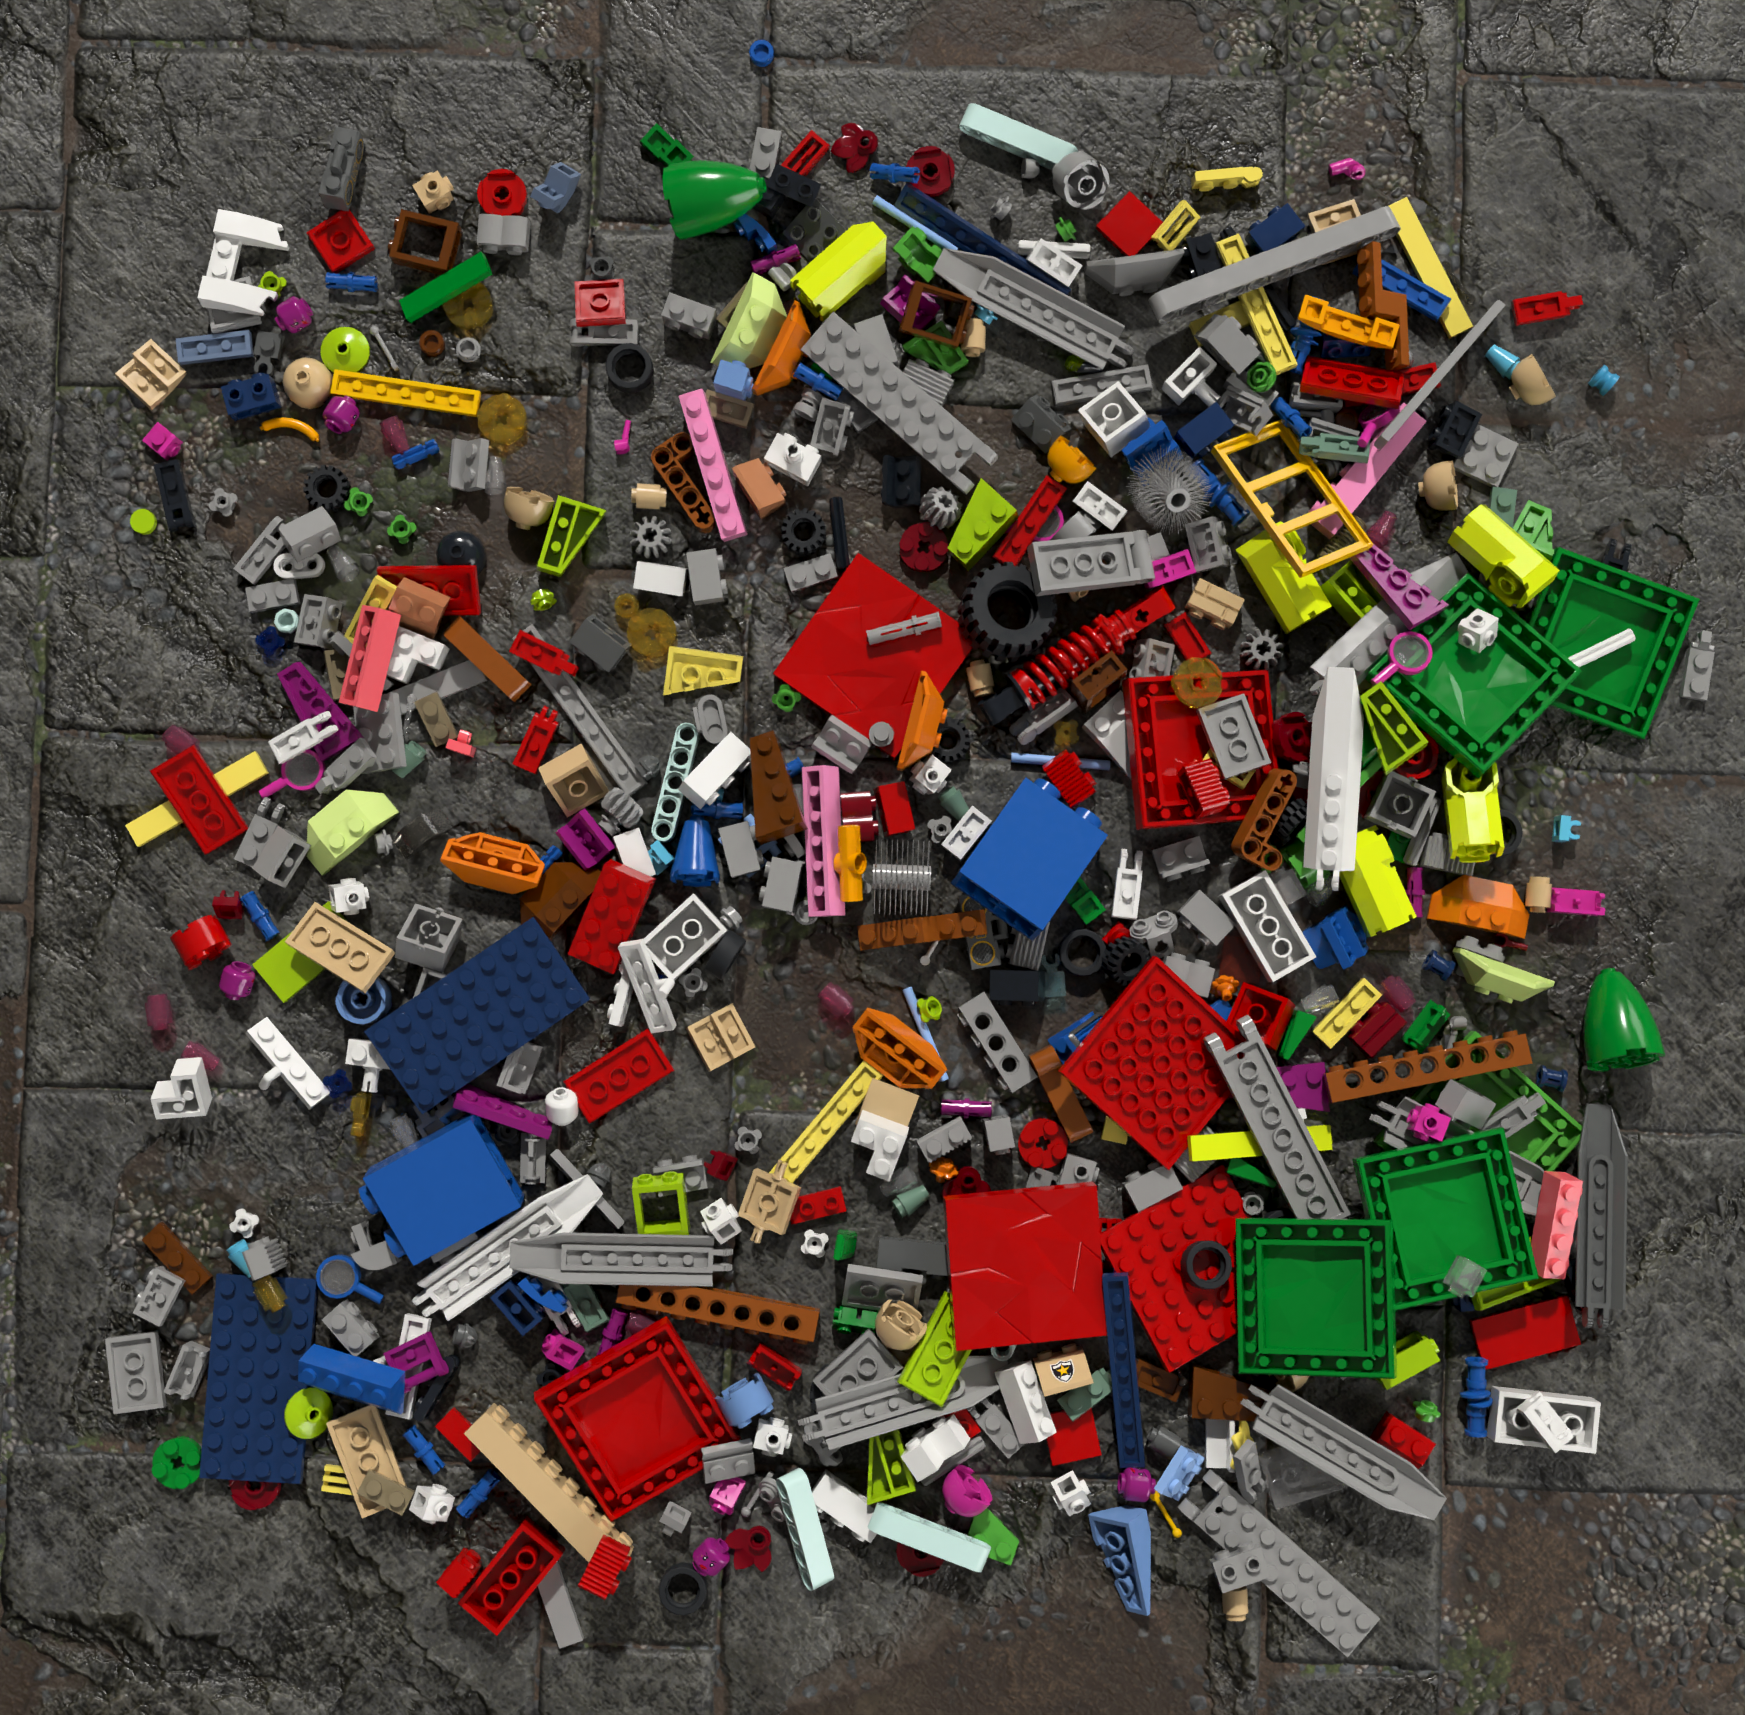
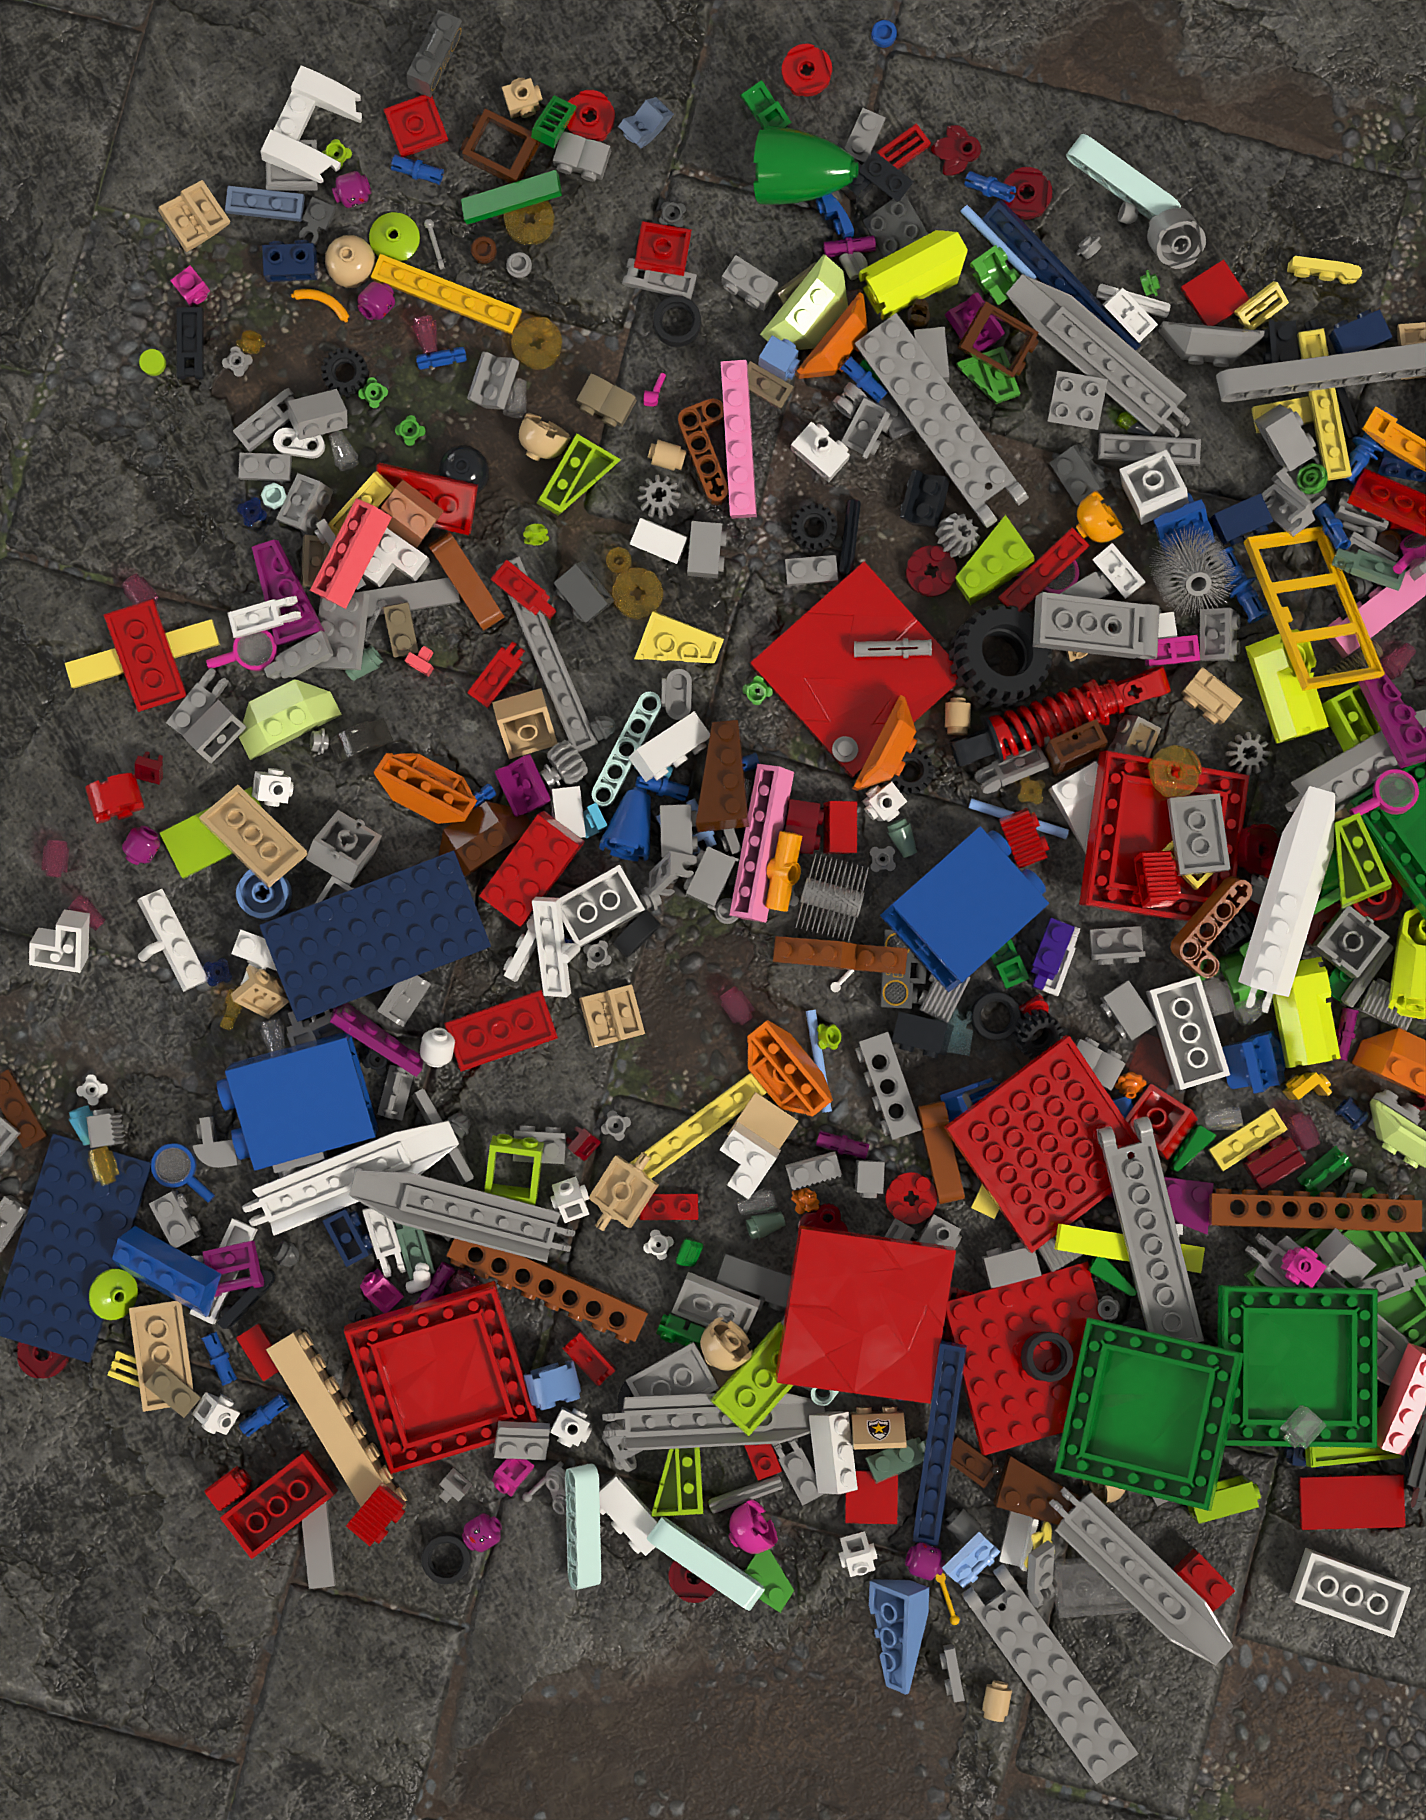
camera: 10 degrees right, 0 degrees up
(231, 481) = (250, 342): none -> clear yellow plate
(259, 915) = (178, 785): blue pin -> none
(381, 1094) = (261, 993): none -> tan bracket
(463, 221) = (546, 136): none -> green slope
(552, 1299) = (383, 1237): blue slope -> none
(579, 458) = (606, 400): none -> dark tan brick
(597, 1329) = (421, 1280): none -> white arm
(693, 117) = (800, 83): none -> red plate
(741, 888) = (668, 872): none -> light grey hinge
(748, 1550) = (520, 1535): dark red plate -> none
(759, 487) = (779, 472): nougat slope -> none
(842, 744) = (803, 750): light grey bracket -> none
(855, 309) = (918, 315): none -> dark brown hinge
(933, 383) = (980, 408): light grey brick -> none
(934, 1445) = (733, 1473): white brick -> none
(966, 833) = (907, 869): white hinge -> none
(975, 338) = (1032, 372): tan brick -> none
(985, 314) = (1047, 350): medium azure plate -> none
(1023, 354) = (1077, 400): none -> light grey hinge
(1120, 880) = (1051, 952): none -> dark purple hinge
(1155, 929) = (1074, 1010): light grey bracket -> none
(1182, 1575) = (949, 1662): none -> light grey plate
(1187, 637) = (1175, 724): red tile -> none
(1191, 379) = (1240, 464): white brick -> none
(1239, 1567) = (1009, 1667): light grey brick -> none
(1384, 952) = (1301, 1085): none -> yellow bracket
(1426, 1411) = (1233, 1556): bright green plate -> none
(1476, 1396) = (1288, 1554): blue piece -> none
(1545, 1421) = (1350, 1593): white hinge -> none

